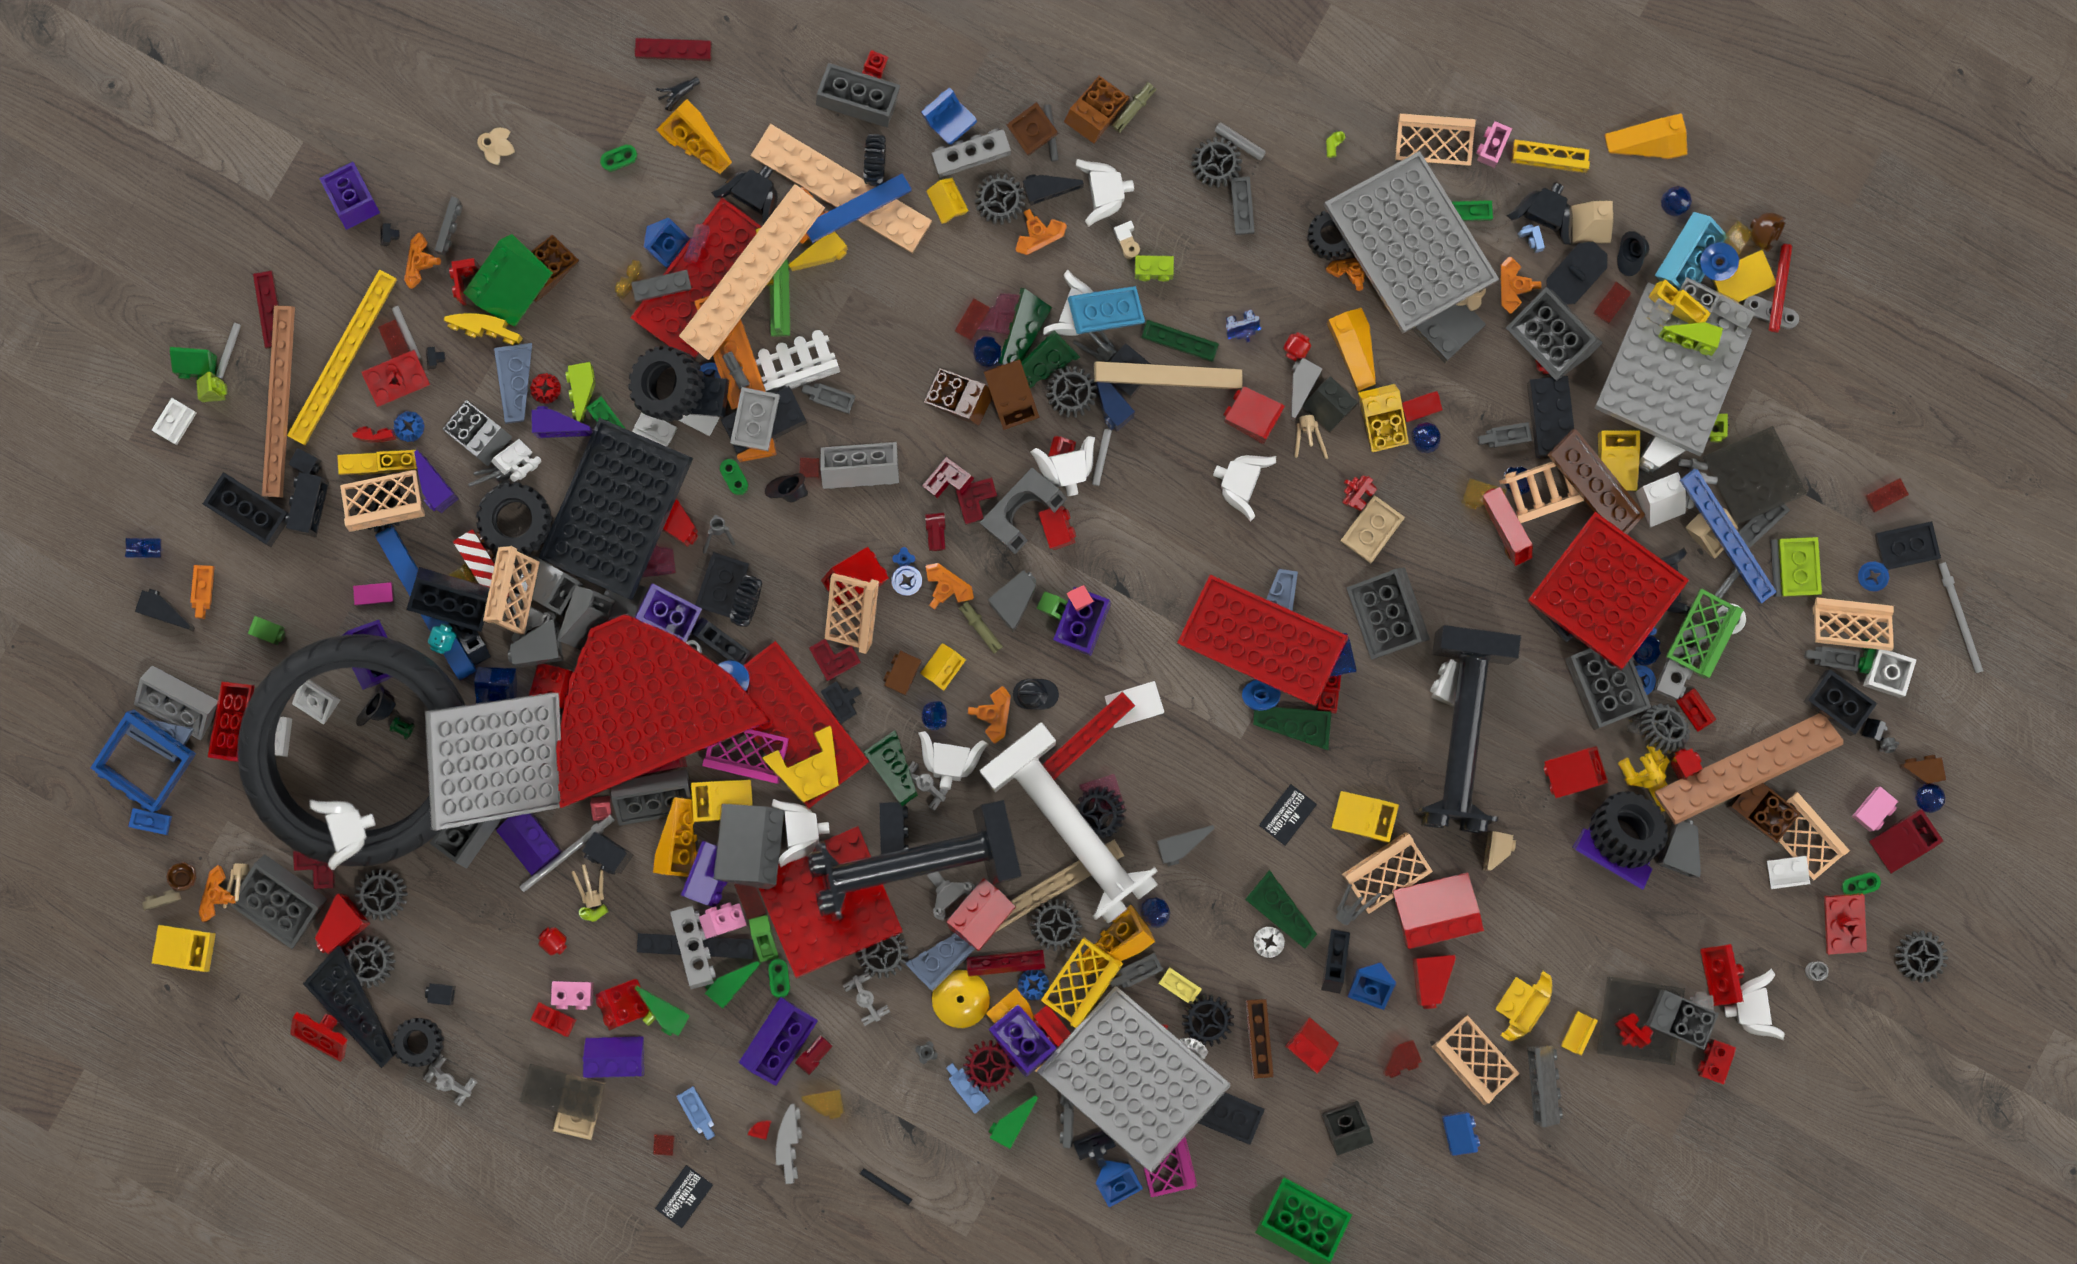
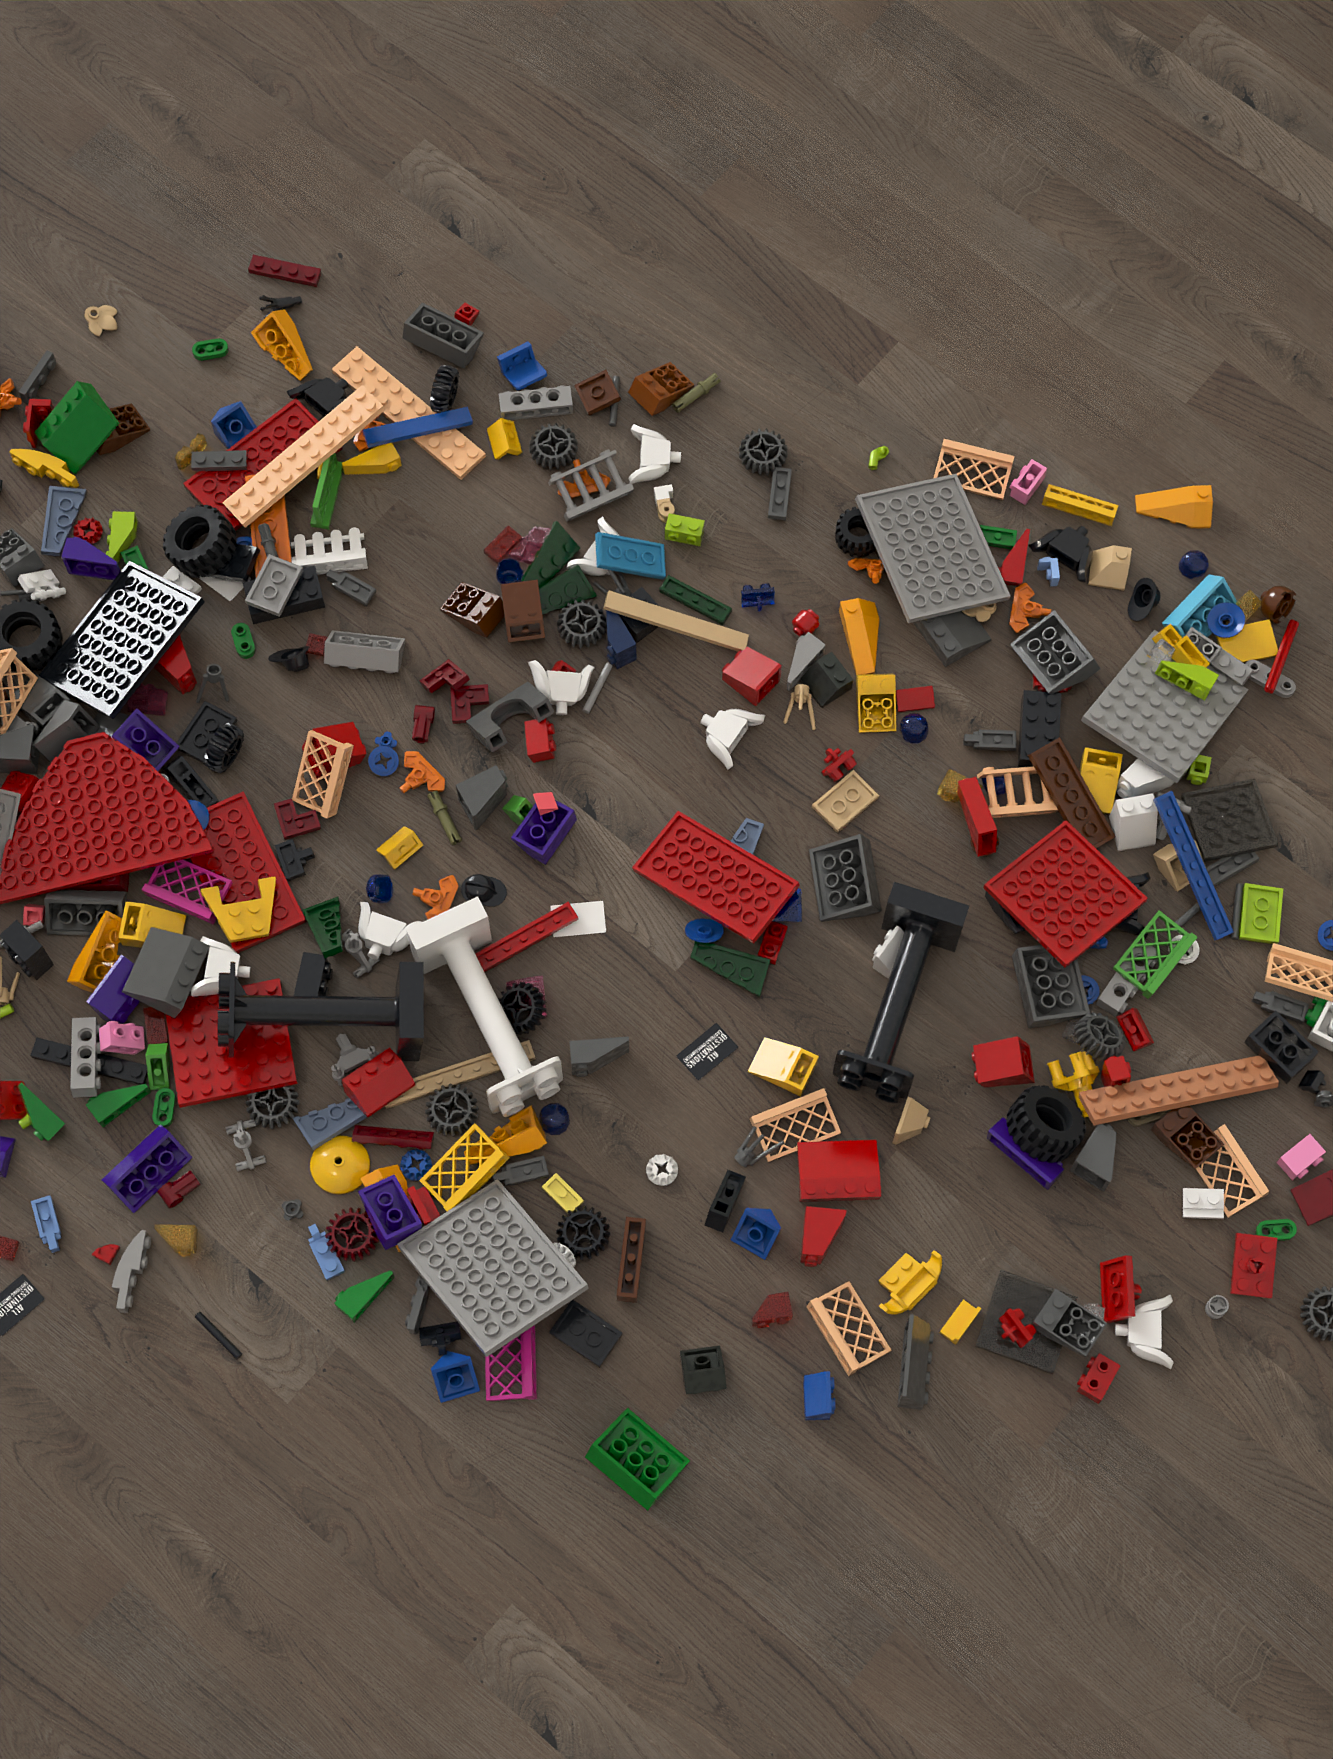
camera: 10 degrees right, 15 degrees down
(696, 243) = (263, 427): clear pink slope -> none
(752, 454) = (271, 621): orange slope -> none
(903, 672) = (358, 844): reddish brown brick -> none
(1046, 187) = (595, 442): black slope -> none
(1066, 245) = (605, 495): none -> light grey fence
(1240, 141) = (789, 439): light grey axle -> none
(1279, 908) = (678, 1137): dark green wing -> none
(1312, 1045) = (682, 1278): red slope -> none
(1496, 238) = (1014, 564): none -> red slope
(1578, 272) = (1089, 608): black shield -> none
(1612, 302) = (1116, 642): clear red plate -> none
(1648, 651) = (1094, 961): clear blue hair -> none

